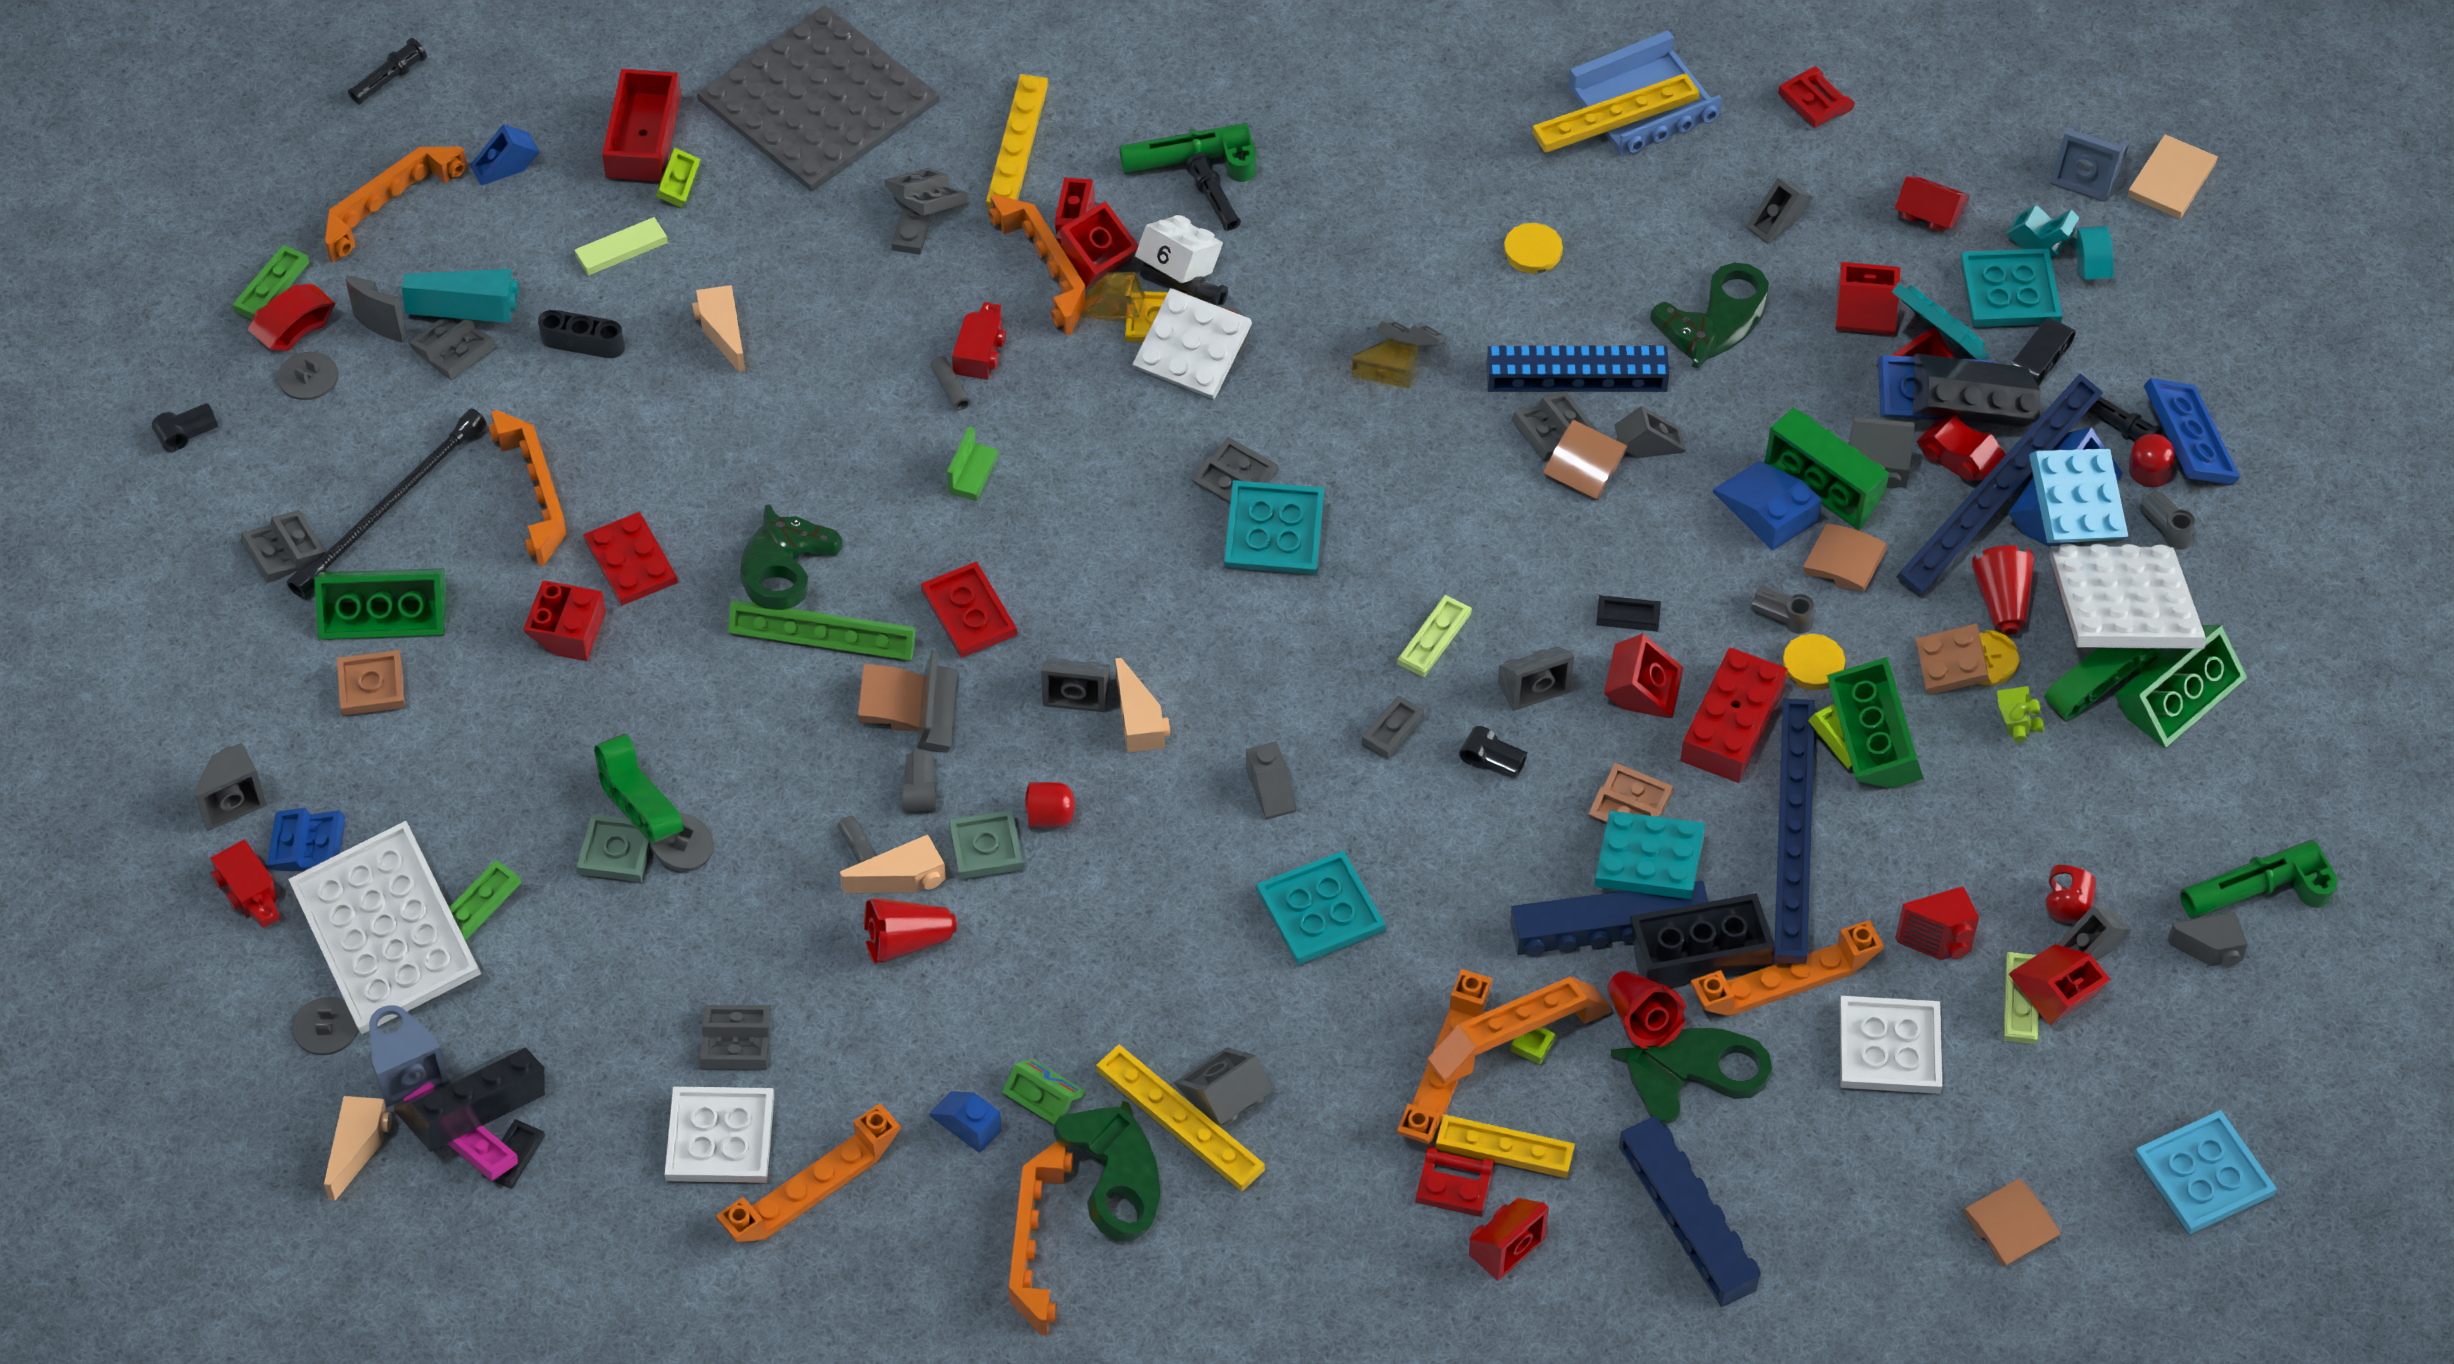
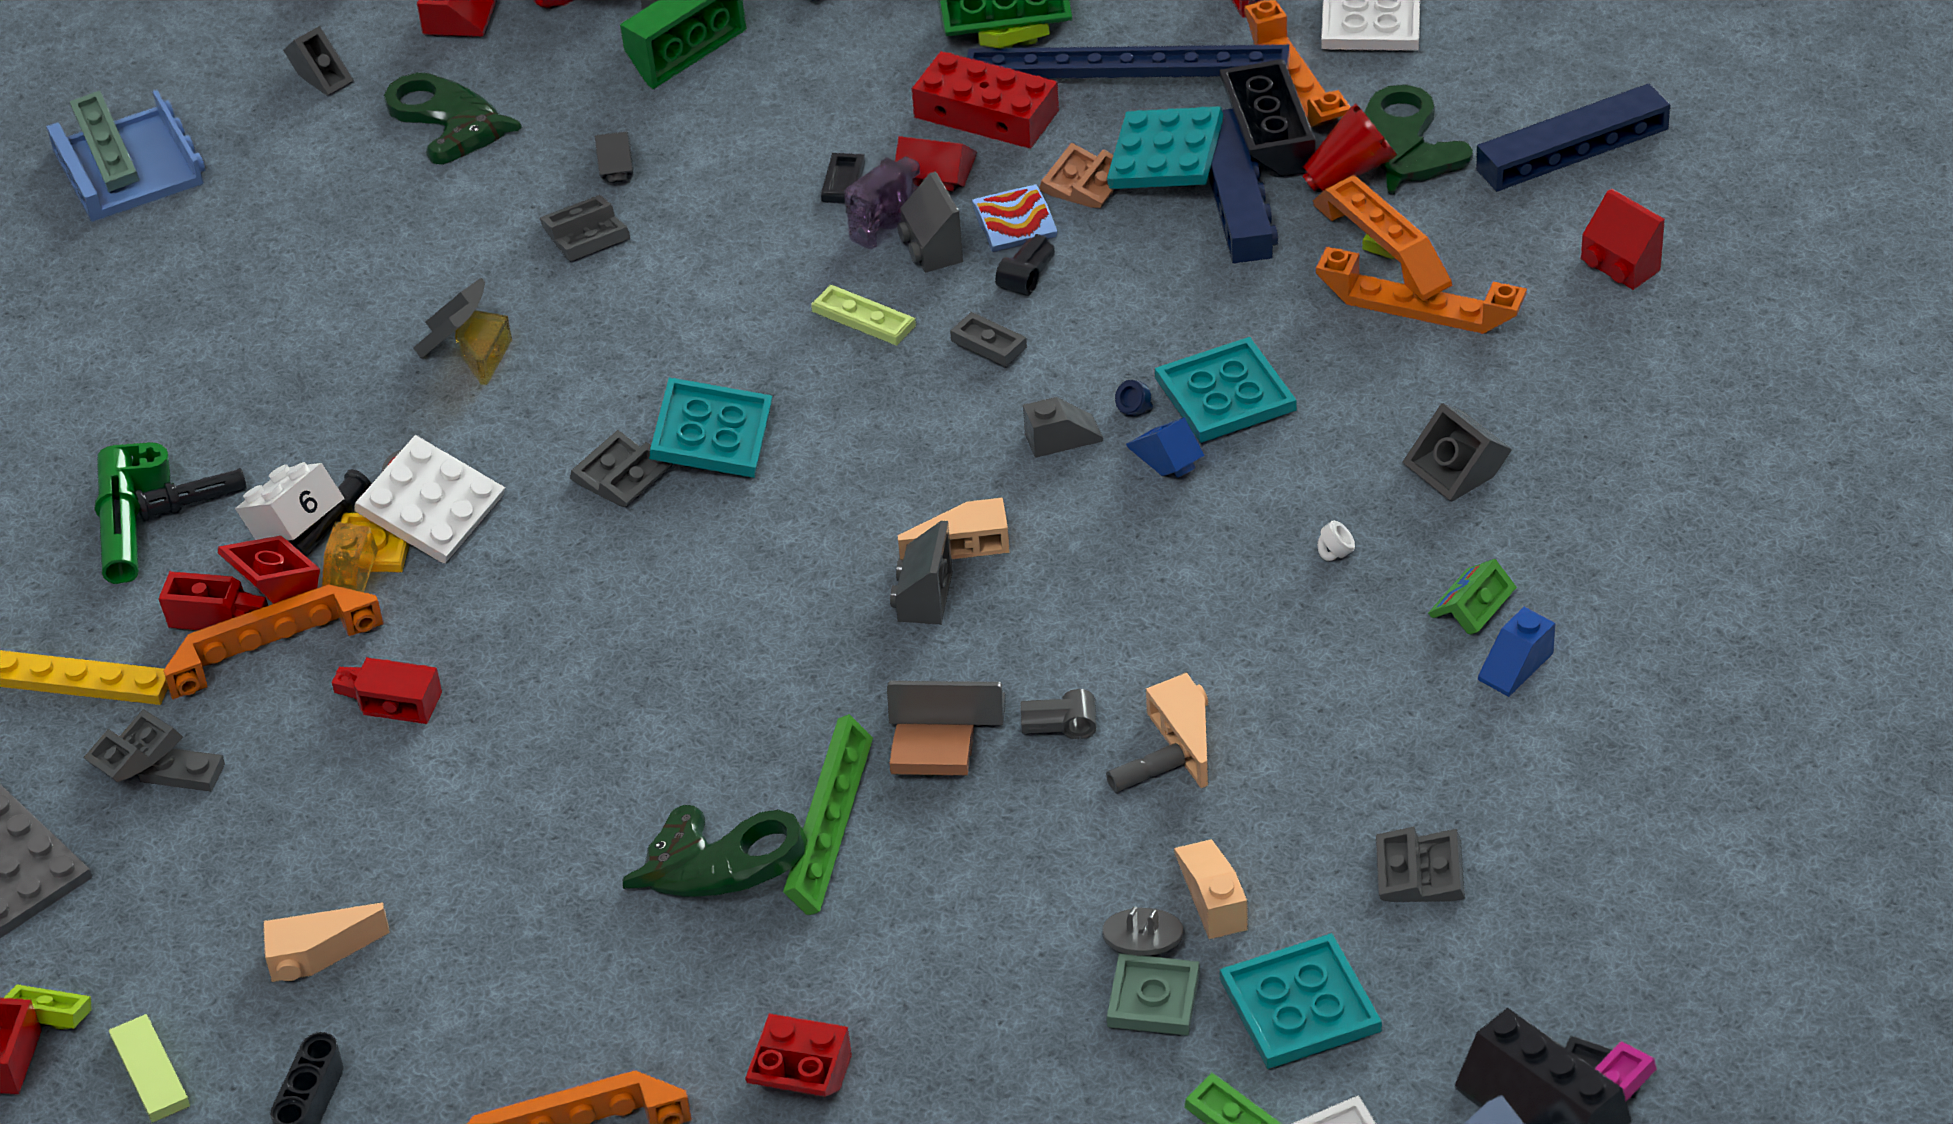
camera: 85 degrees left, 10 degrees down
(598, 945) = (1300, 1000): none -> teal plate
(630, 558) = (691, 1018): red plate -> none
(634, 791) = (1090, 960): green beam -> none
(719, 1134) = (1560, 868): white plate -> none
(724, 886) = (1213, 888): none -> light nougat slope
(787, 1202) = (1555, 727): orange slope -> none
(904, 927) = (1275, 715): red cone -> none
(951, 385) = (453, 717): dark grey piece -> none
(968, 609) = (803, 684): red plate -> none
(970, 467) = (585, 693): bright green panel -> none
(985, 844) = (1144, 654): sand green plate -> none
(1033, 1302) = (1662, 600): orange slope -> none
(1049, 804) = (1097, 587): red helmet -> none
(1116, 987) = (1337, 540): none -> white tile
(1127, 1167) = (1542, 533): dark green animal -> none
(1180, 1118) = (1498, 489): yellow plate -> none
(1238, 858) = (1168, 448): none -> blue slope
(1307, 835) = (1133, 398): none -> dark blue tile
(1454, 1191) = (1563, 298): red plate -> none
(1505, 1146) = (1512, 248): yellow plate -> none
(1533, 248) = (327, 243): yellow tile -> none
(1566, 744) = (1014, 217): none -> slope
(1572, 630) = (879, 198): none -> clear purple hips
(1577, 368) = (512, 206): dark blue brick -> none
(1585, 459) = (642, 197): nougat slope -> none
(1615, 112) = (155, 170): yellow plate -> none
(1687, 60) = (104, 141): none -> sand green plate
(1770, 503) = (711, 75): blue slope -> none
(1793, 610) = (850, 67): dark grey piece -> none
(1810, 101) = (160, 40): red plate -> none
(1812, 659) = (910, 55): yellow tile -> none
(1845, 556) = (785, 32): nougat slope -> none

